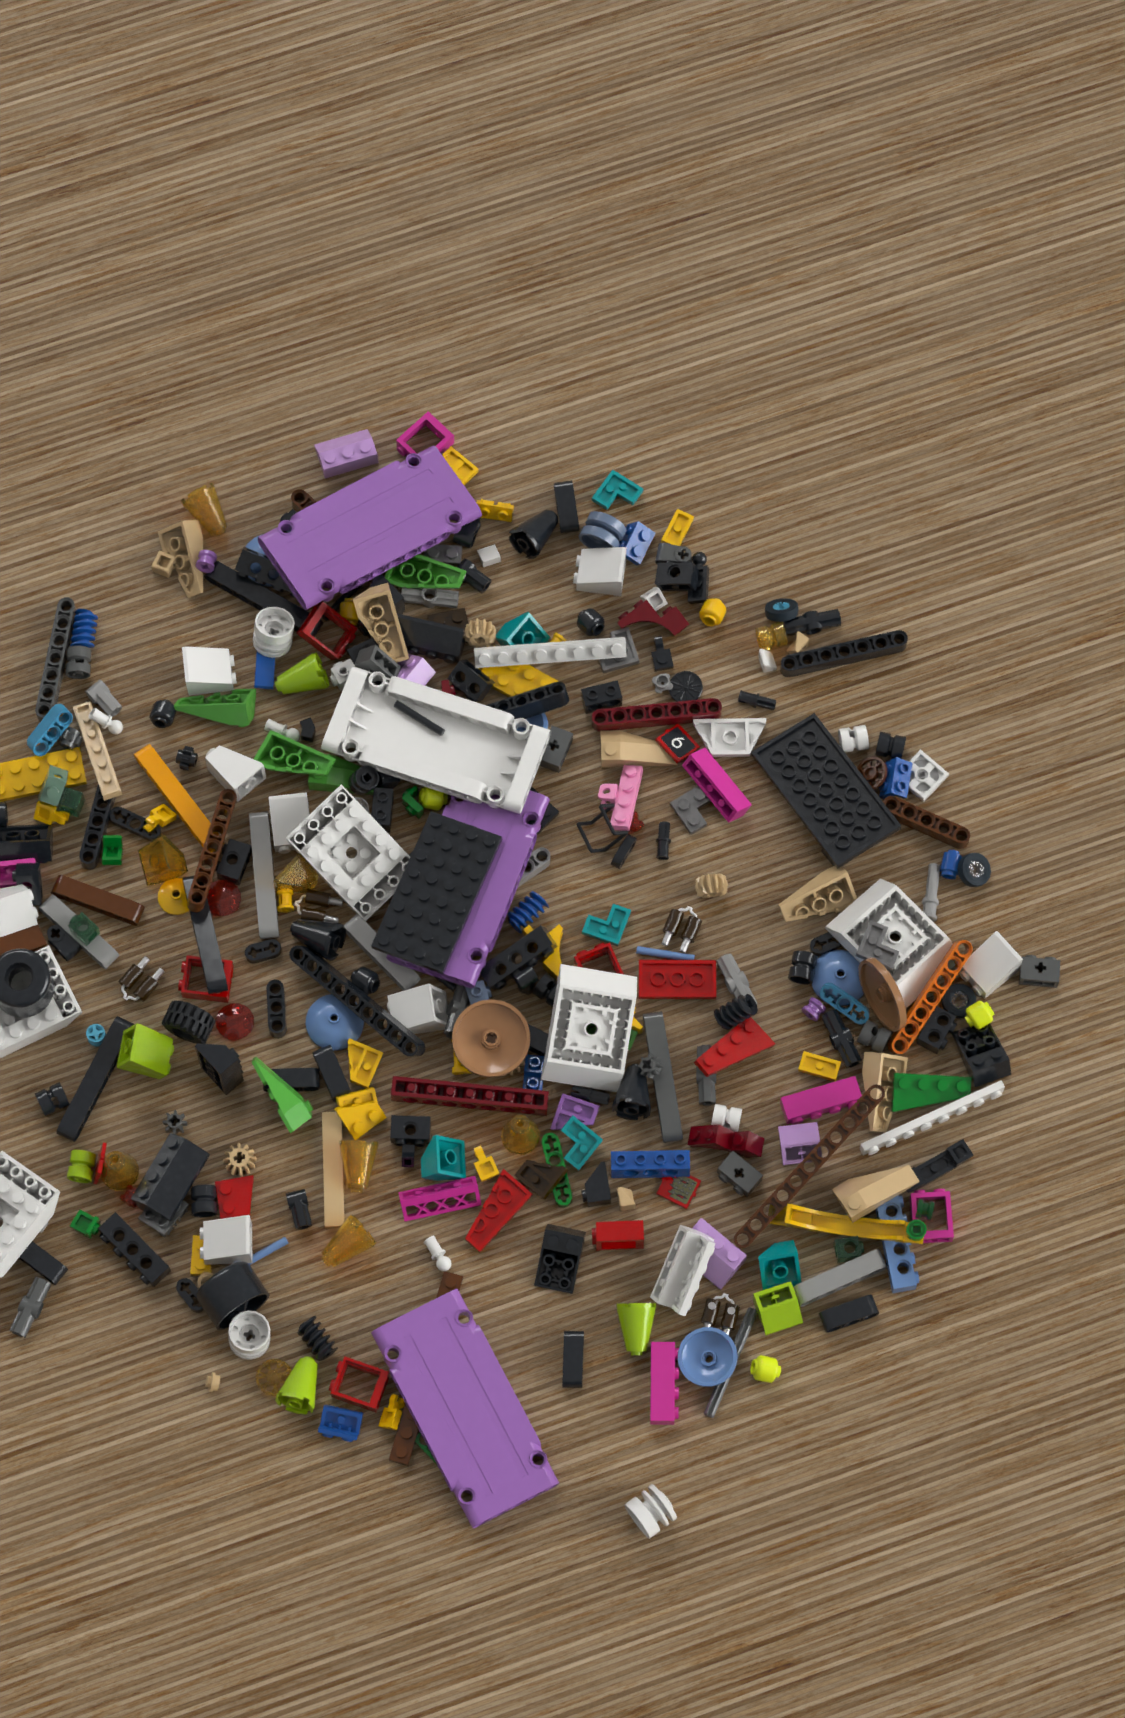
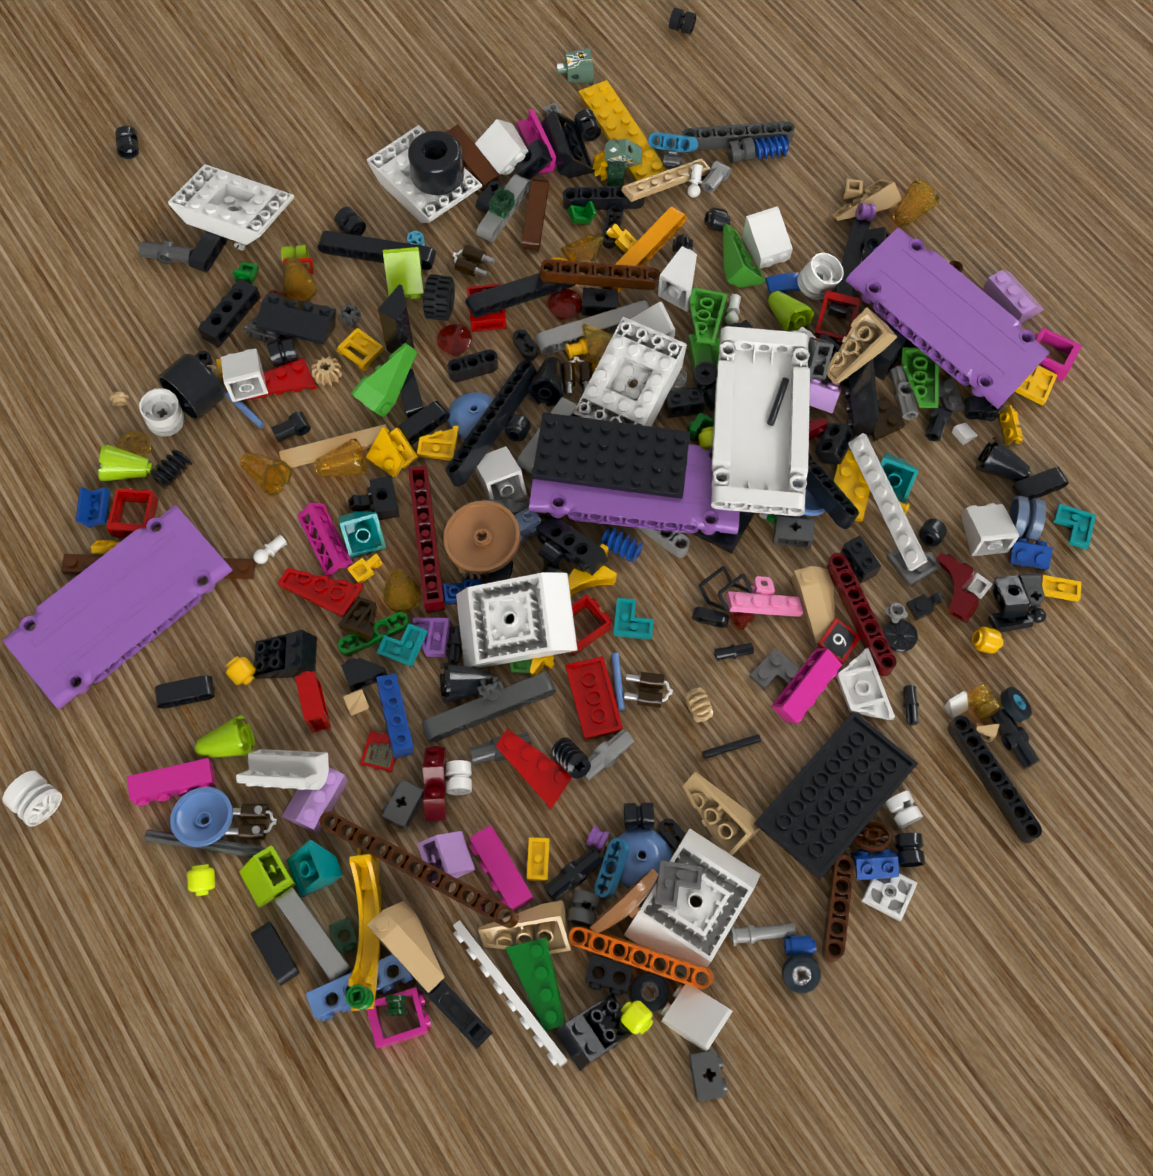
camera: 75 degrees right, 5 degrees down
(217, 1115) = (363, 344): none -> yellow plate
(480, 633) = (883, 437): tan gear -> none
(565, 1301) = (240, 671): none -> yellow head
(755, 870) = (731, 746): none -> black bar

